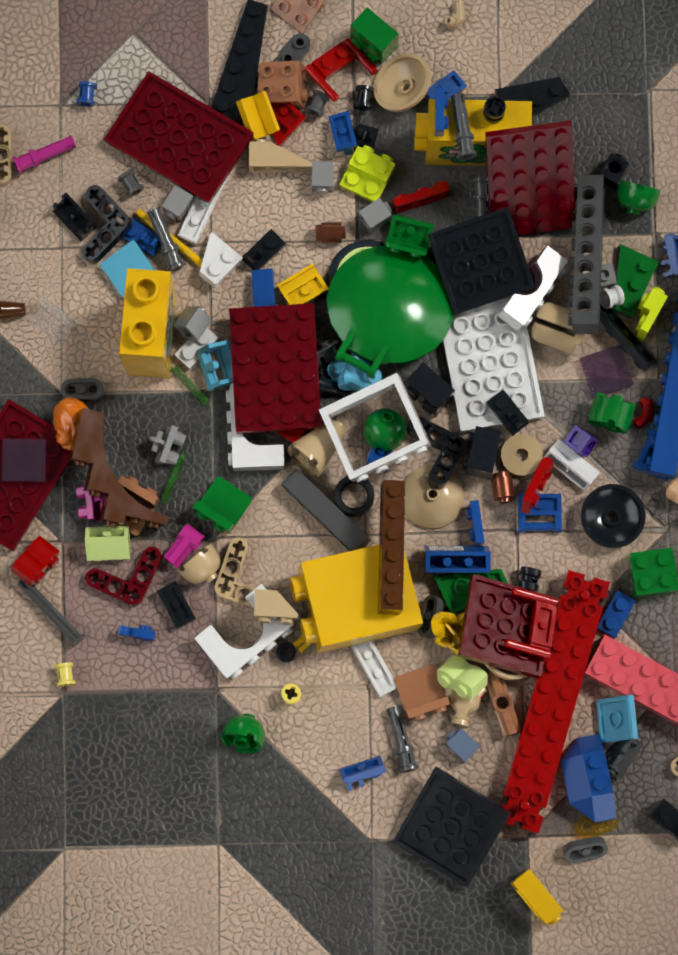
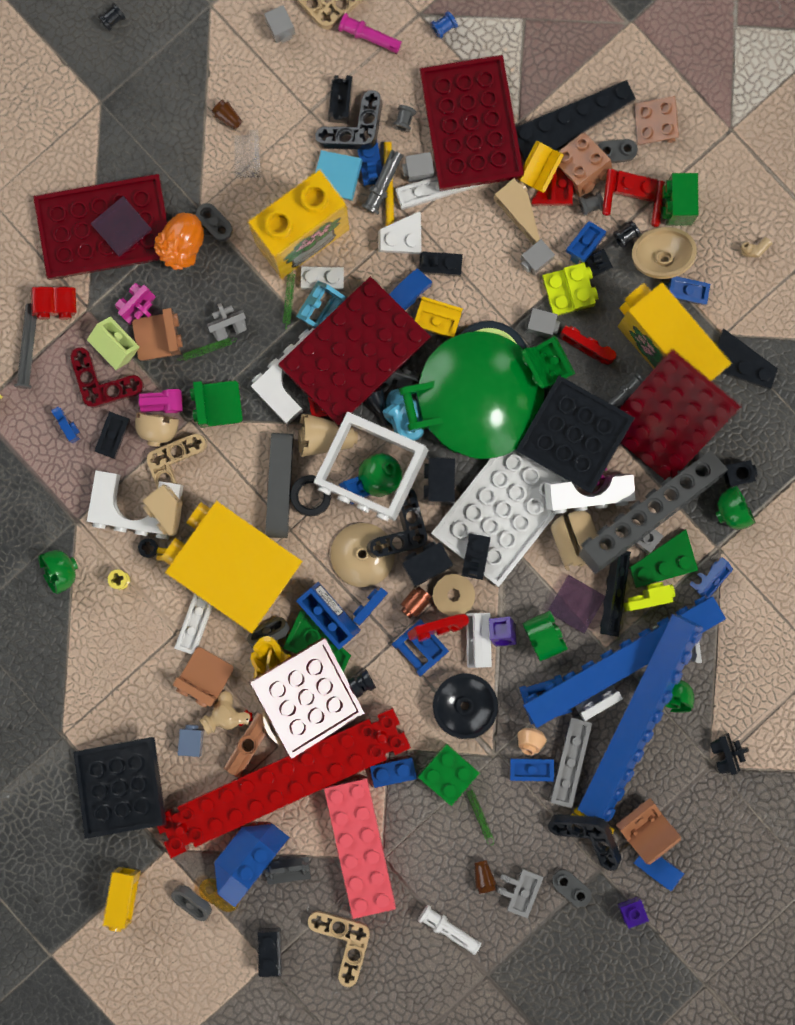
camera: 50 degrees right, 5 degrees up
(117, 503) = (145, 324): reddish brown arch -> none
(192, 322) = (336, 258): light grey brick -> none
(330, 232) = (498, 301): copper brick -> none
(363, 770) = (106, 683): blue plate -> none
(391, 547) = (287, 559): reddish brown brick -> none
(404, 749) = (150, 701): dark grey pin -> none
(441, 102) = (651, 306): blue plate -> none
(462, 677) = (239, 697): yellowish green brick -> none
(463, 136) = (655, 335): dark grey pin -> none
(494, 105) = (699, 336): black wheel -> none
(541, 625) = (331, 724): red plate -> none
(612, 297) = (636, 558): white wheel -> none
(617, 719) = (310, 843): medium azure tile -> none
(647, 412) = (571, 662): red arm -> none

